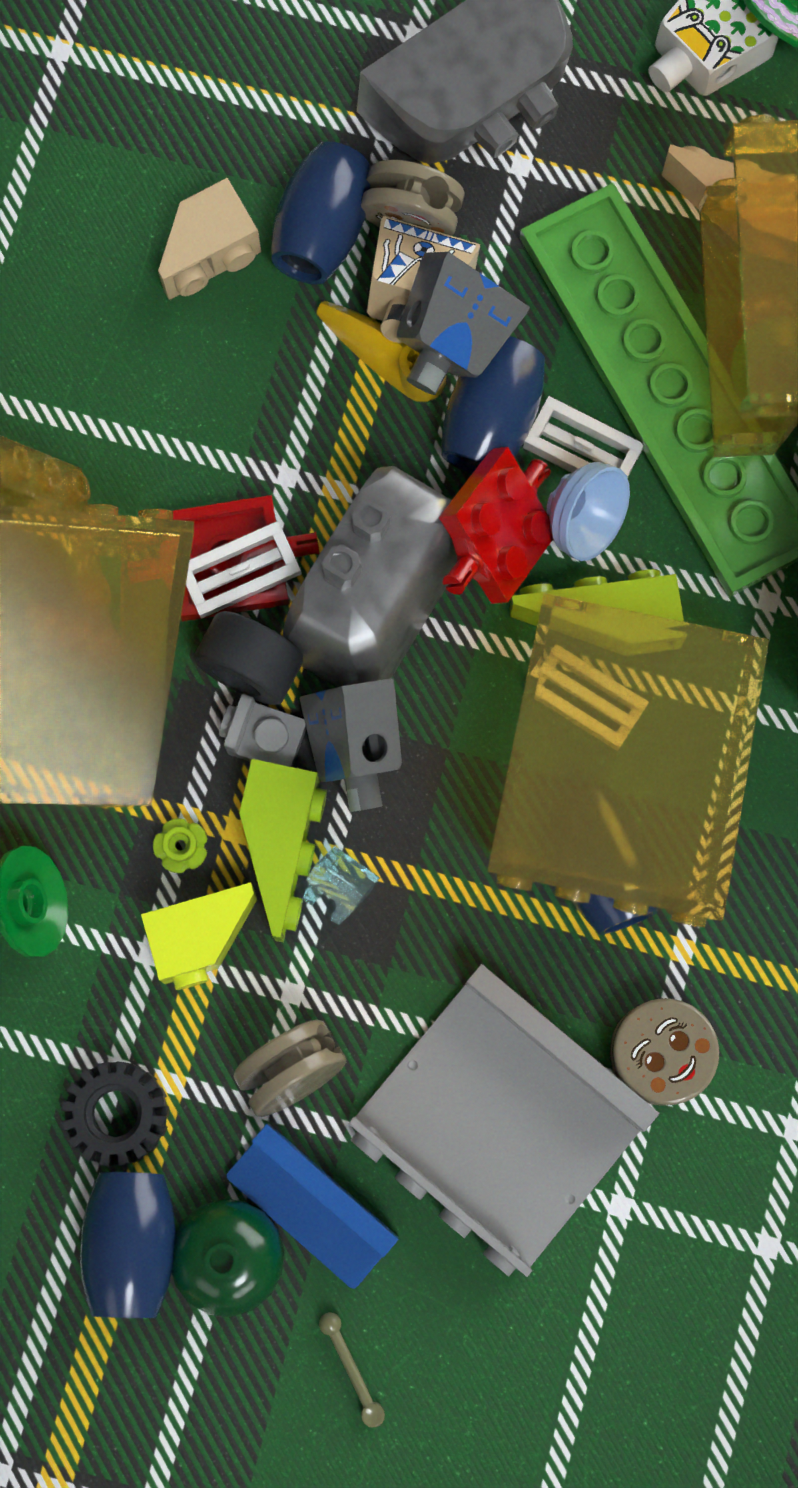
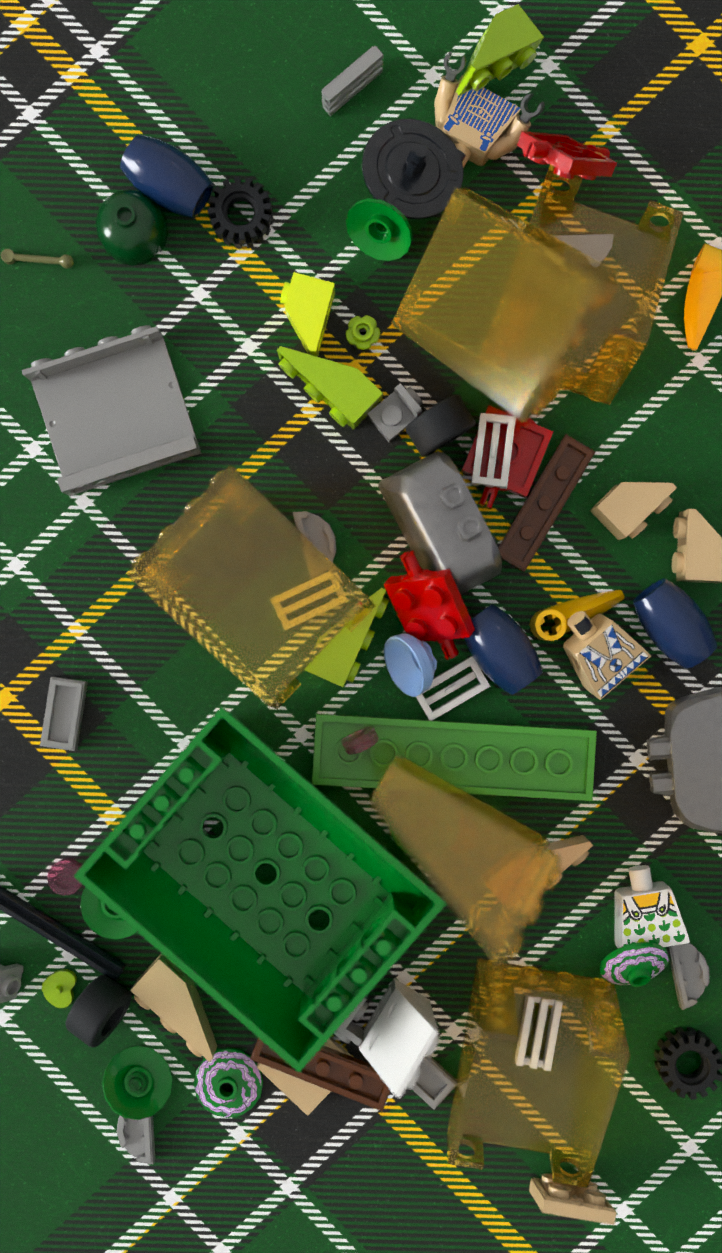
camera: 125 degrees right, 10 degrees up
(201, 358) = (630, 504): none -> tan slope
(261, 470) = (544, 502): none -> reddish brown tile
(290, 1066) = (205, 315): dark tan head -> none
(311, 1206) = (131, 289): blue panel -> none
(342, 881) = (289, 404): clear light blue tile -> none
(354, 737) = (360, 455): dark grey torso -> none
(412, 195) = (650, 679): dark tan head -> none
(455, 320) = (558, 650): dark grey torso -> none
(491, 742) = (317, 532): none -> light grey tile
(665, 1051) = (94, 518): dark tan head -> none
(730, 509) = (360, 740): none -> tile

